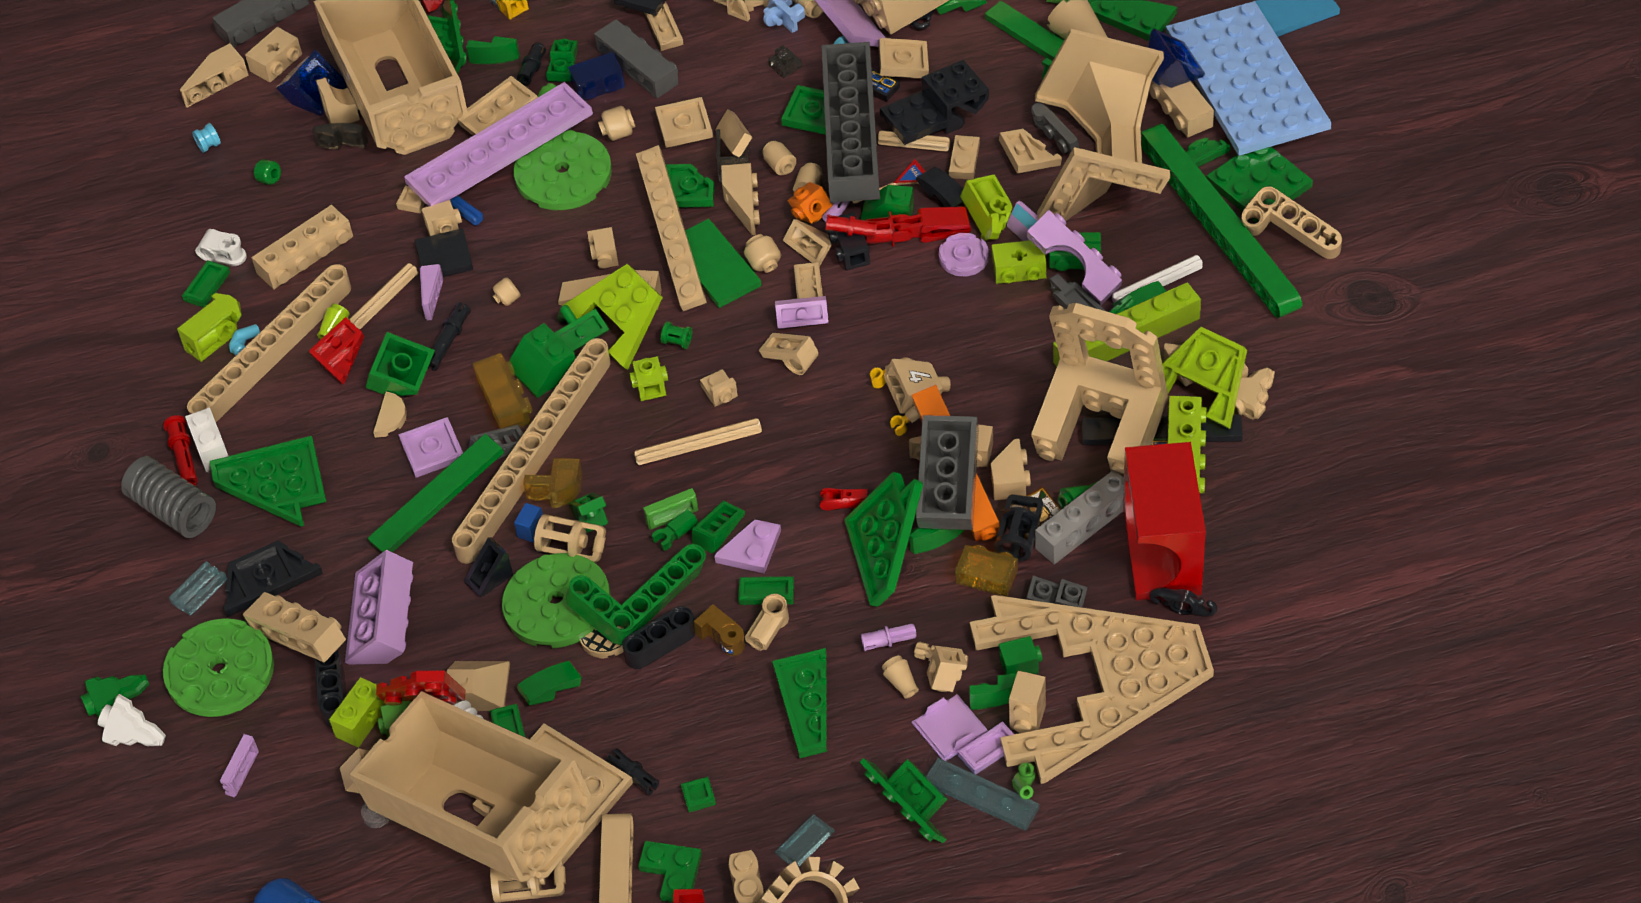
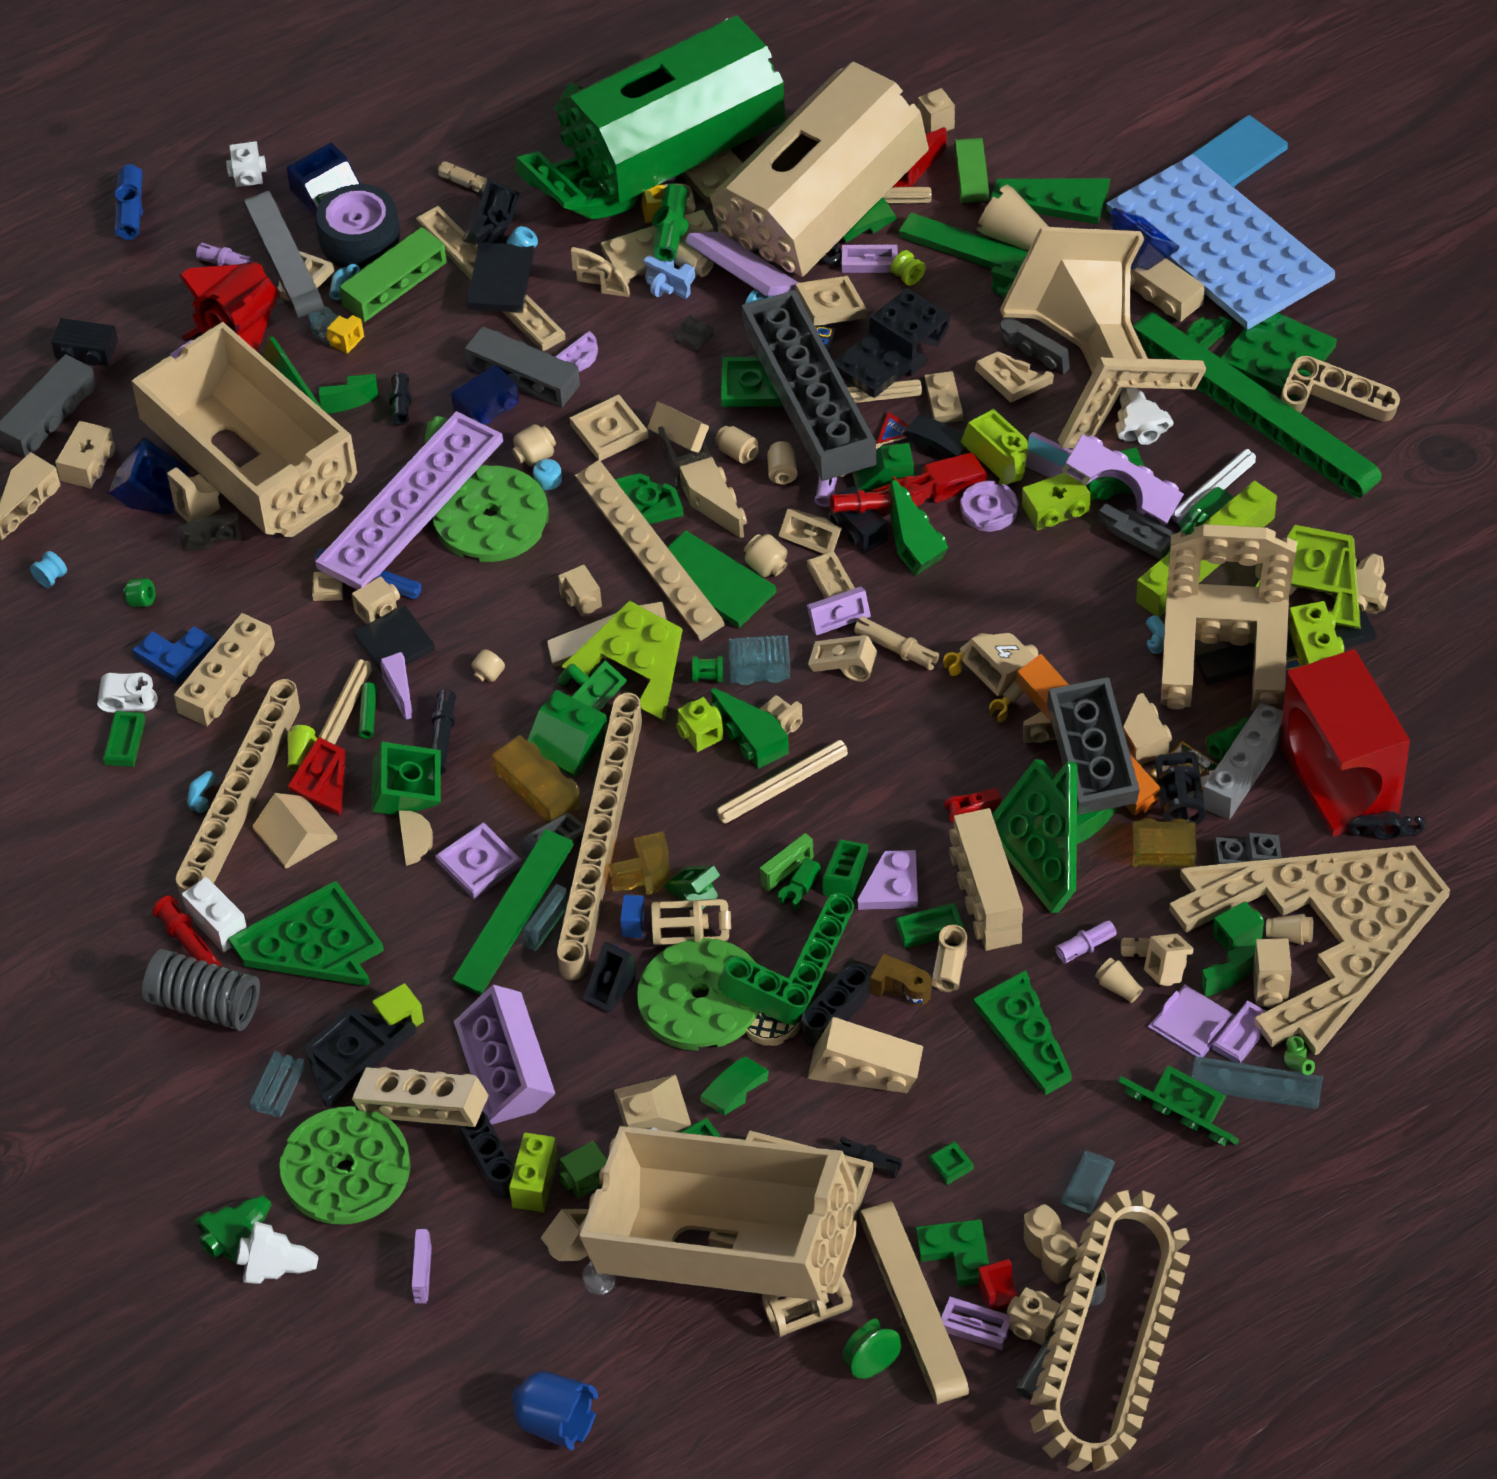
camera: 20 degrees left, 0 degrees up
(210, 326) = (159, 785): lime piece -> none
(268, 229) = (174, 660): none -> blue plate
(300, 385) = (292, 828): none -> tan slope
(313, 547) = (399, 1004): none -> lime panel
(398, 305) = (367, 710): none -> green piece
(434, 683) = (630, 1113): red plate -> none
(458, 506) = (546, 917): none -> clear light blue tile
(496, 105) = (385, 456): tan plate -> none
(562, 55) = (433, 387): green slope -> none
(620, 149) = (547, 474): none -> medium azure piece
(662, 687) = (864, 1058): none -> tan wedge
(688, 58) = (581, 352): none -> lavender tile
(692, 393) = (755, 730): none -> green slope
(721, 337) = (759, 659): none -> clear light blue brick
(809, 203) = (797, 486): orange brick -> none
(821, 563) = (986, 879): none -> tan piece
(845, 356) = (906, 648): none -> tan pin
(888, 269) = (914, 536): none -> green slope
(951, 34) = (869, 262): none -> lavender tile
(978, 45) = (908, 268): none -> lime wheel
(1065, 669) = (1294, 927): none -> tan cone
(1119, 210) = (1140, 418): none -> white rock

